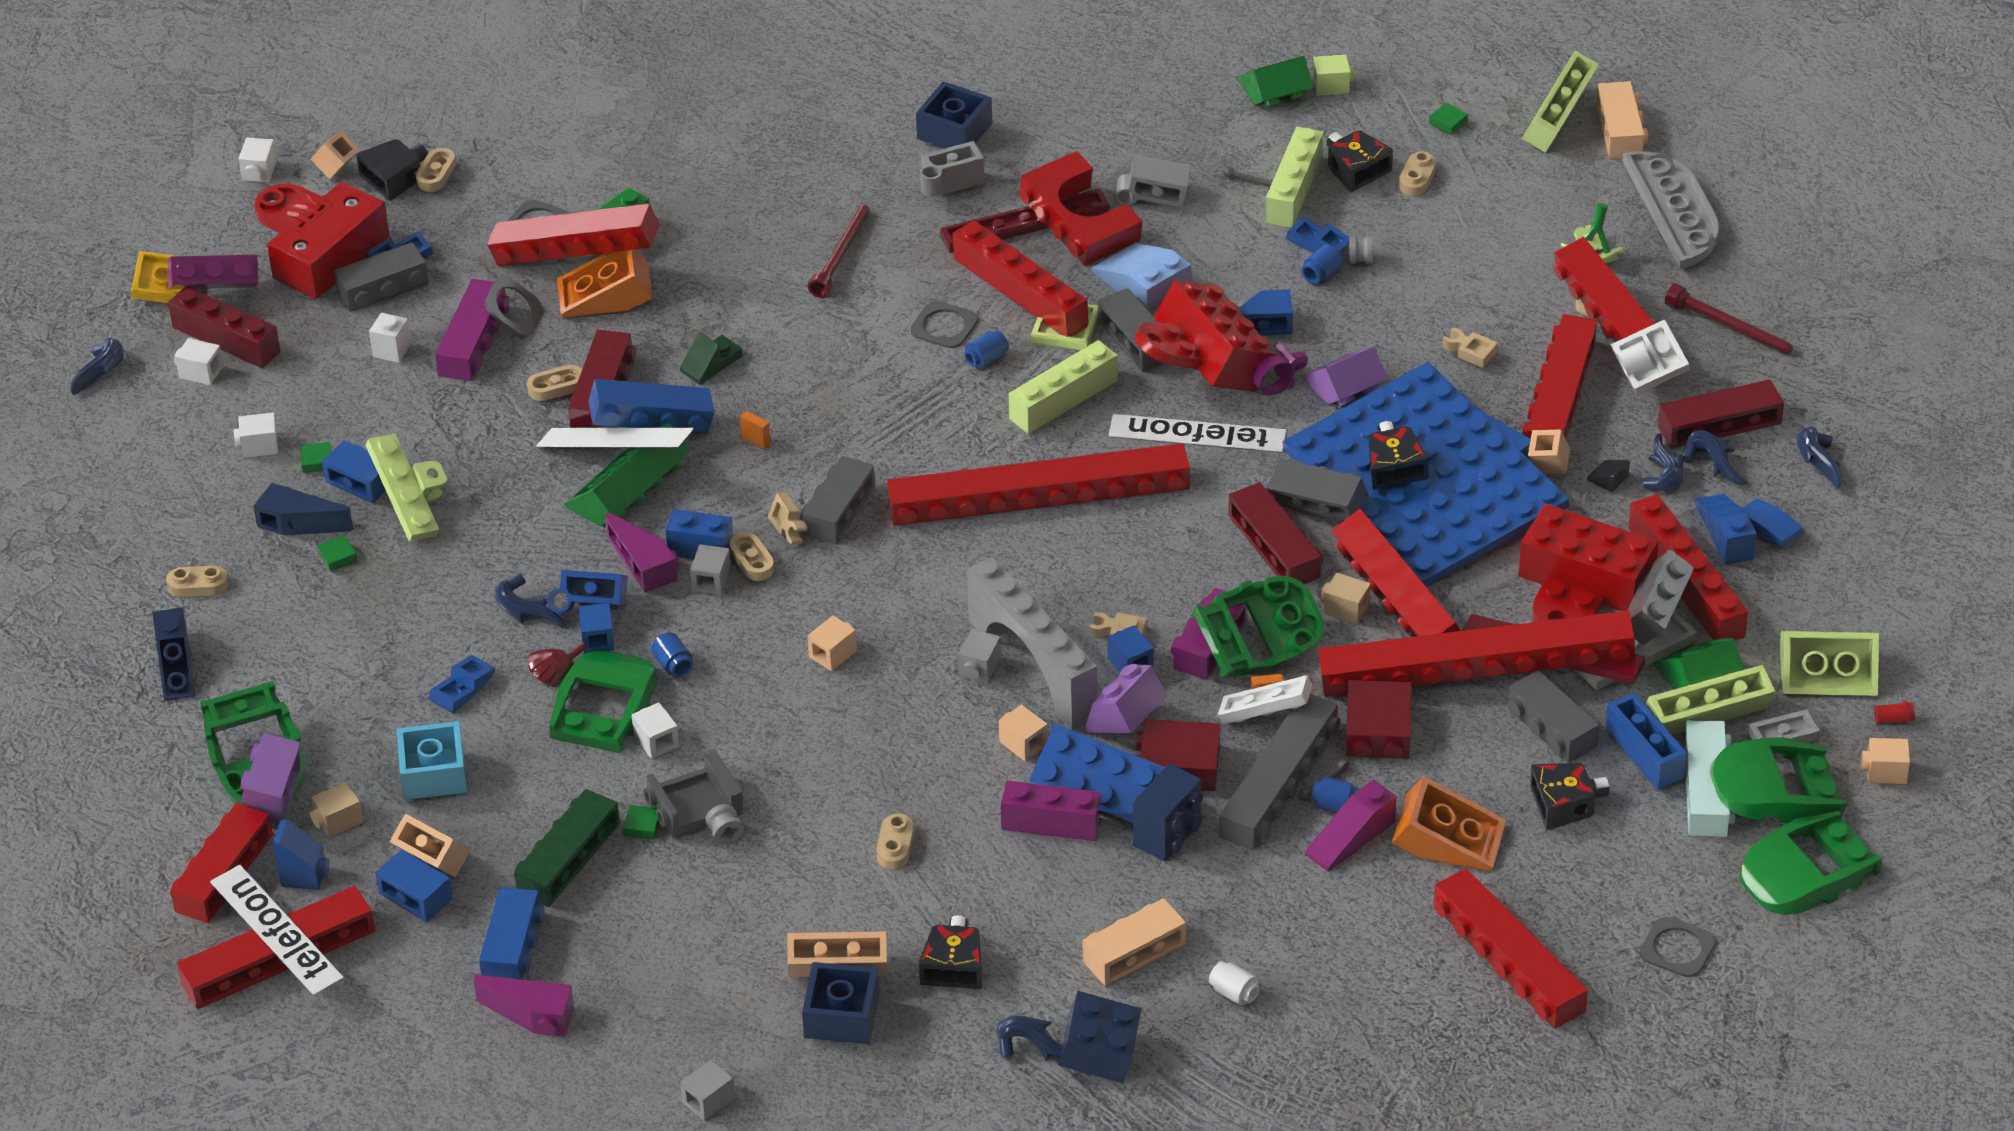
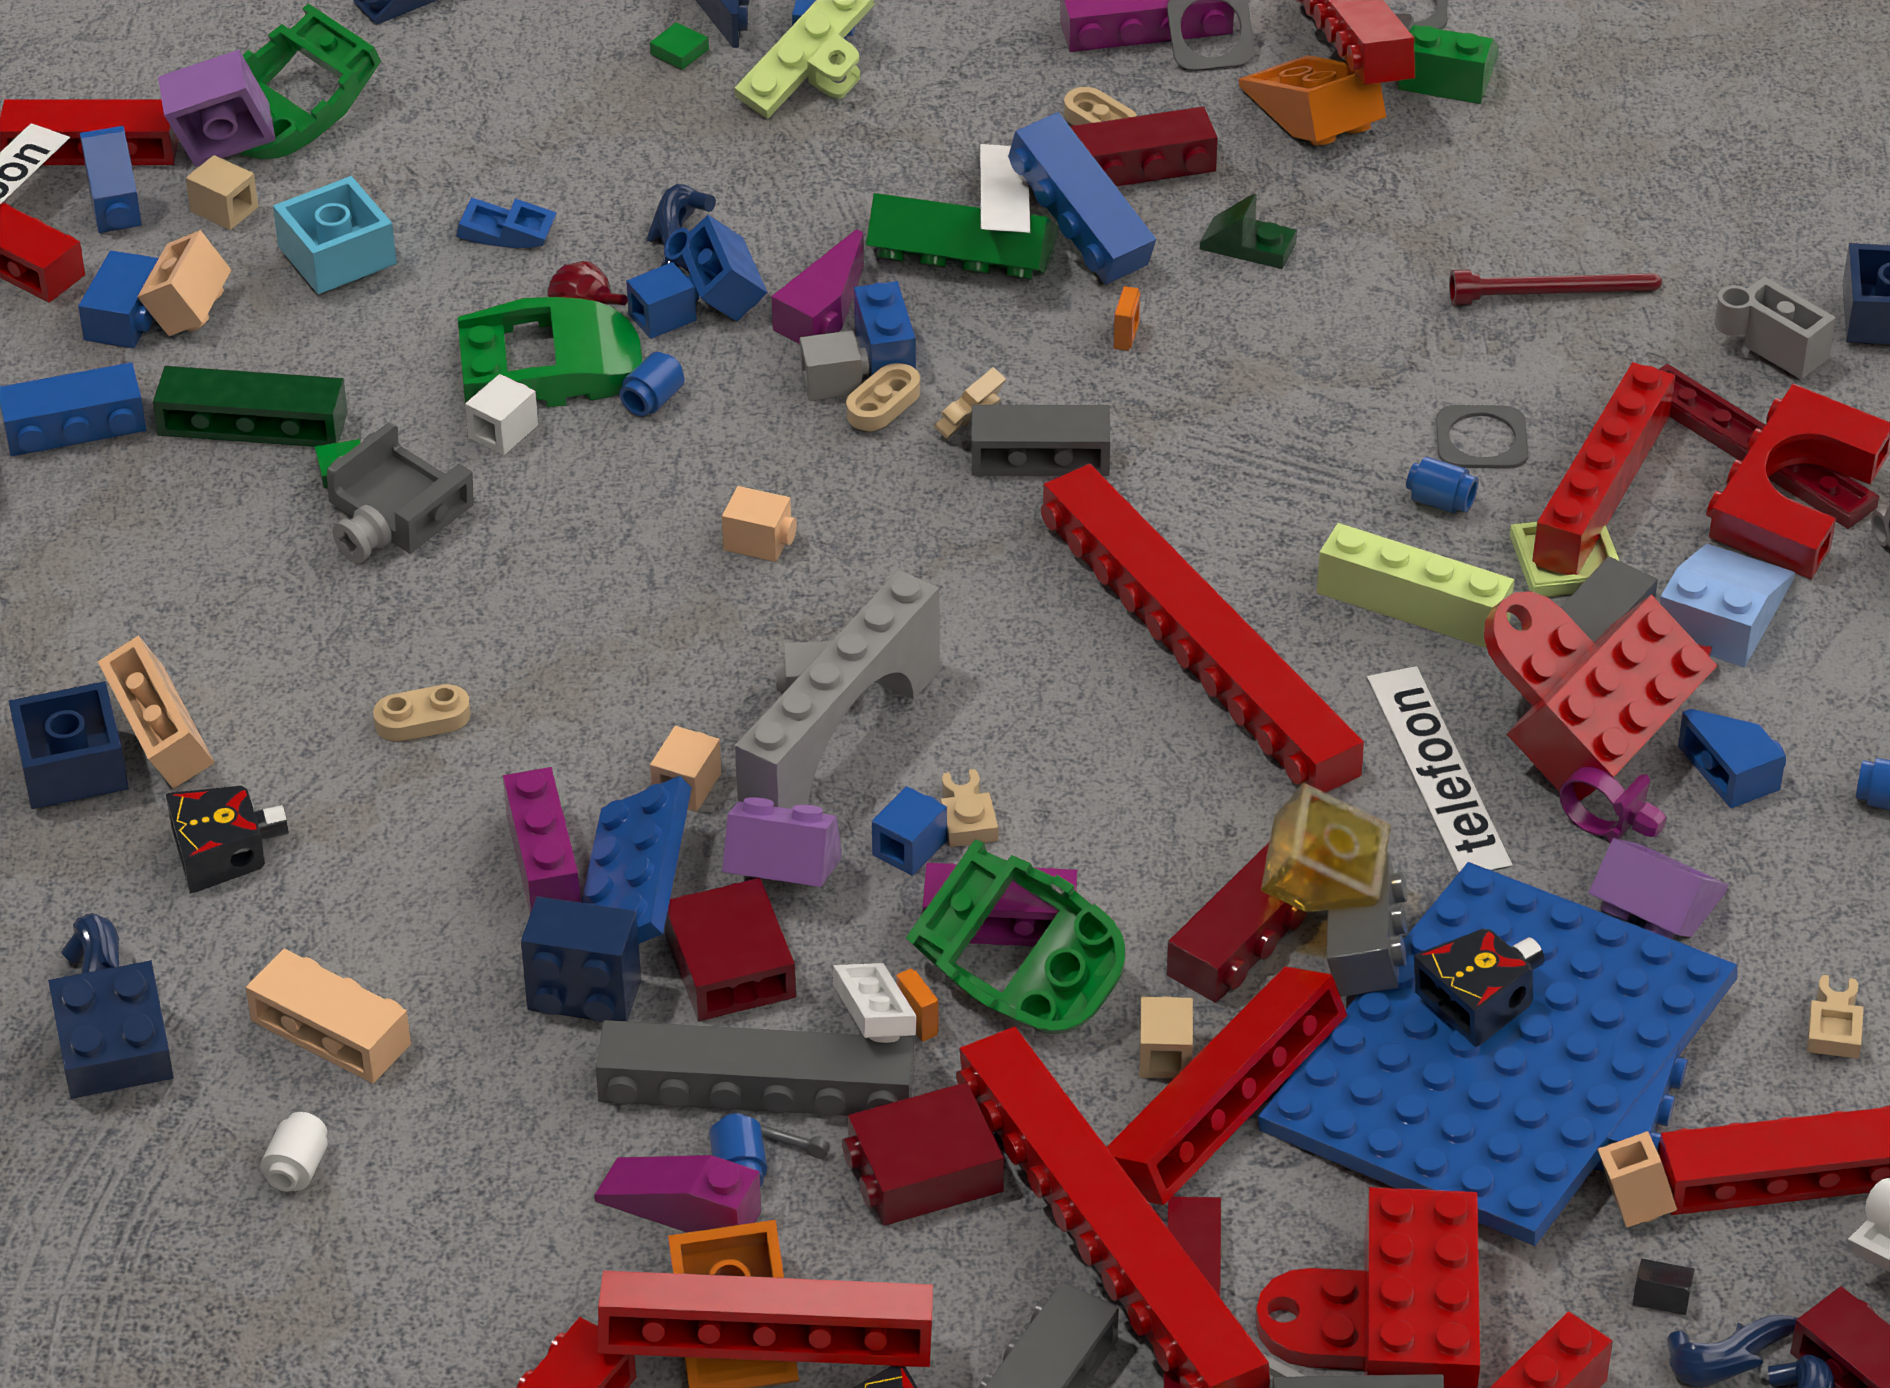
camera: 65 degrees right, 0 degrees up
(1276, 479) = (1325, 853): none -> clear yellow slope
(1485, 803) = (765, 1318): none -> red brick

